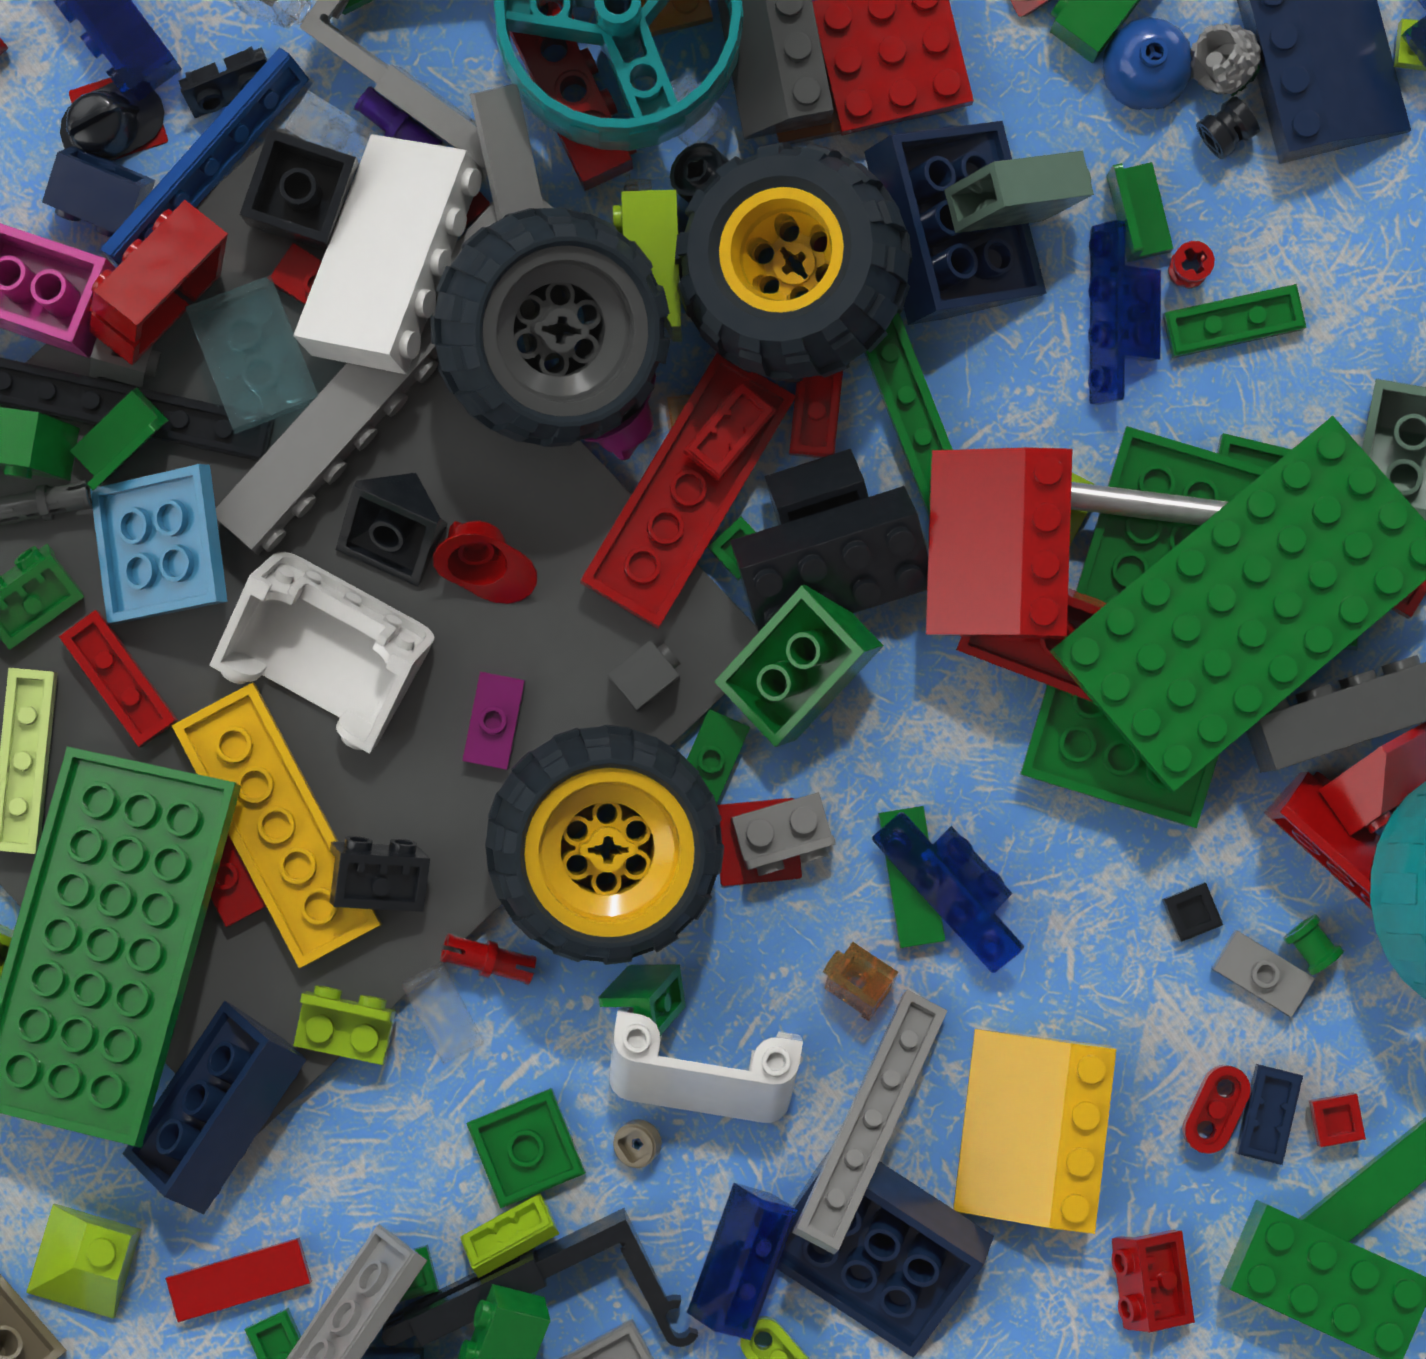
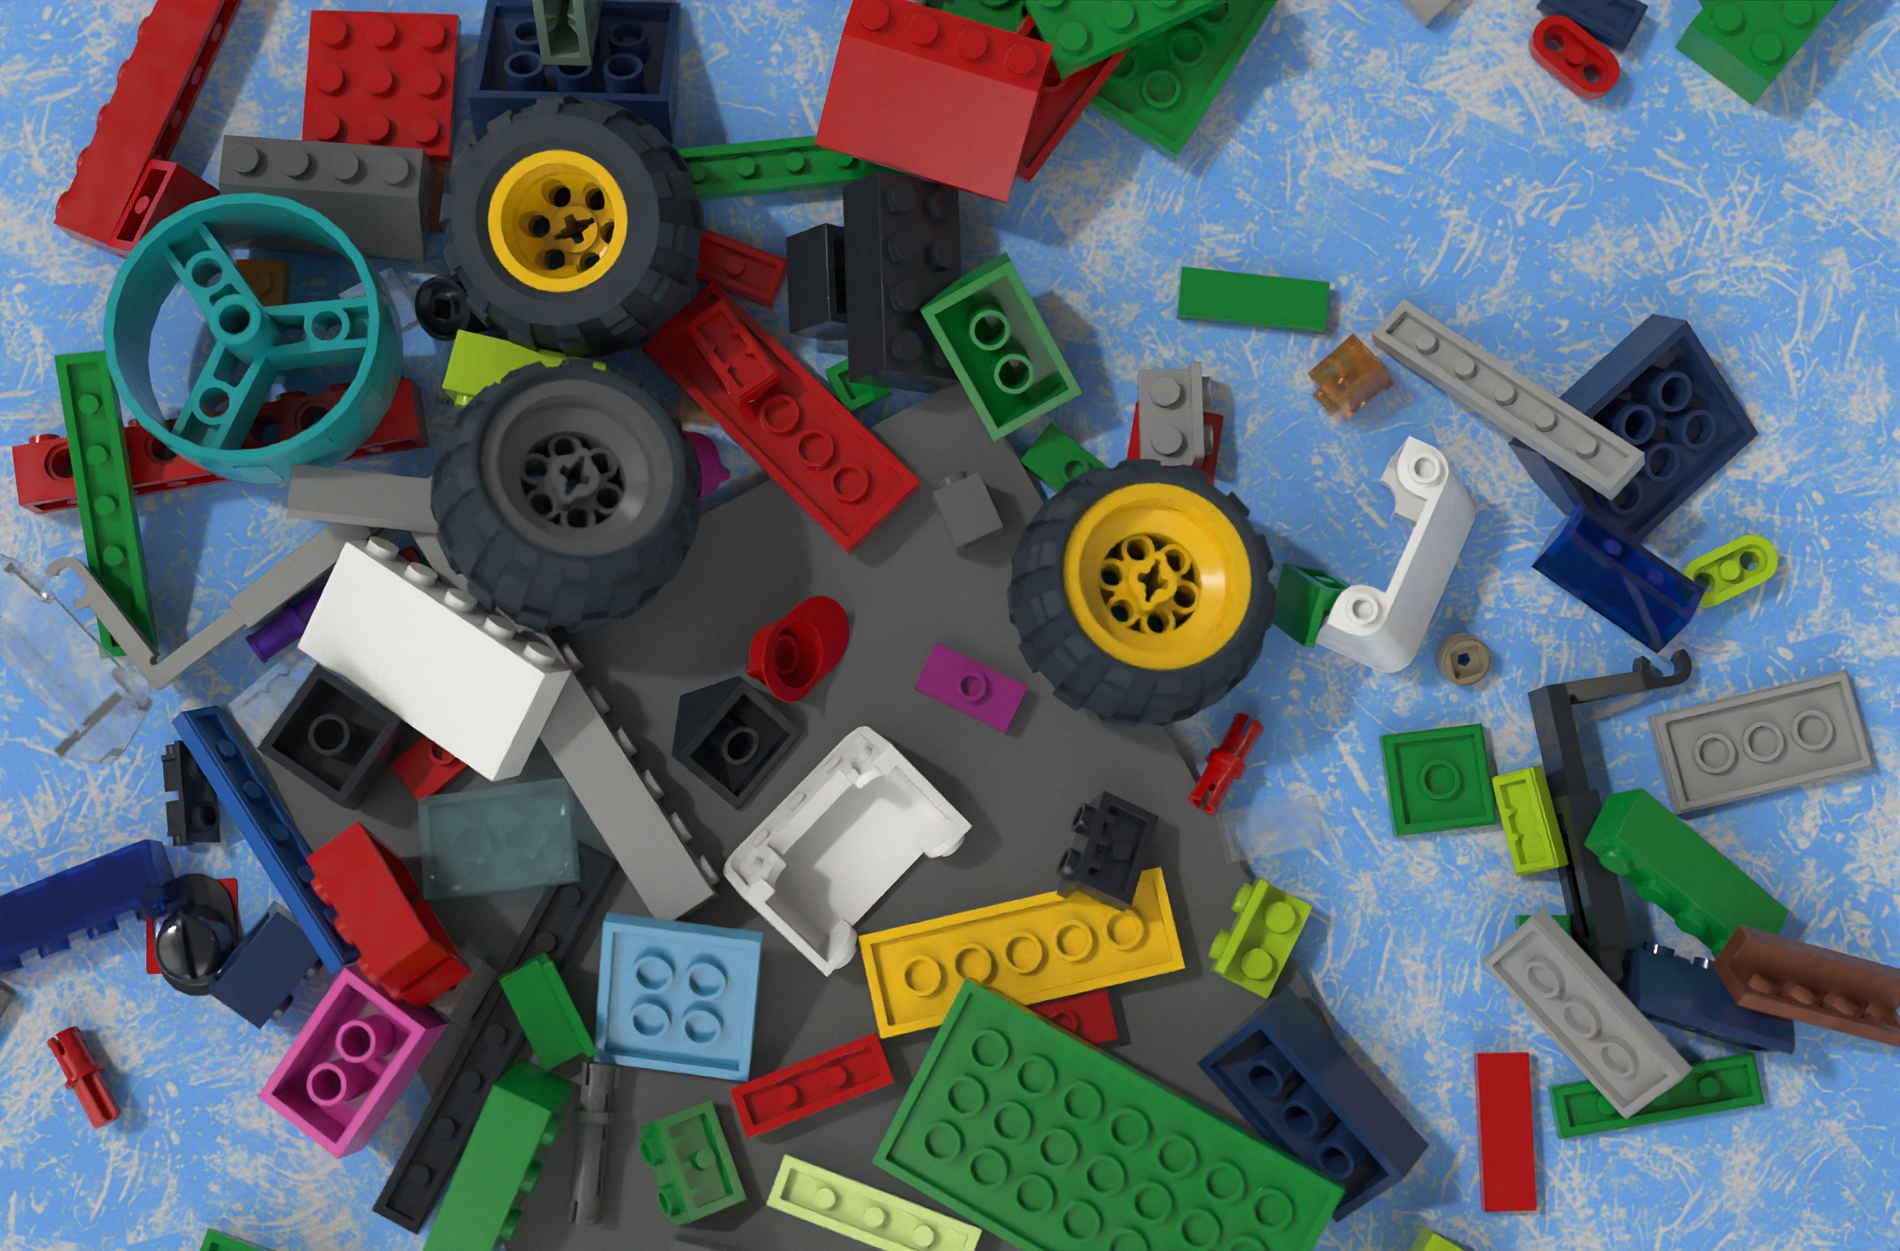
camera: 75 degrees left, 5 degrees down
(955, 885) = (1276, 254): clear blue bracket -> none
(1035, 1130) = (1552, 242): yellow slope -> none
(1152, 1281) = (1737, 169): red bracket -> none
(1192, 912) = (1363, 29): black tile -> none

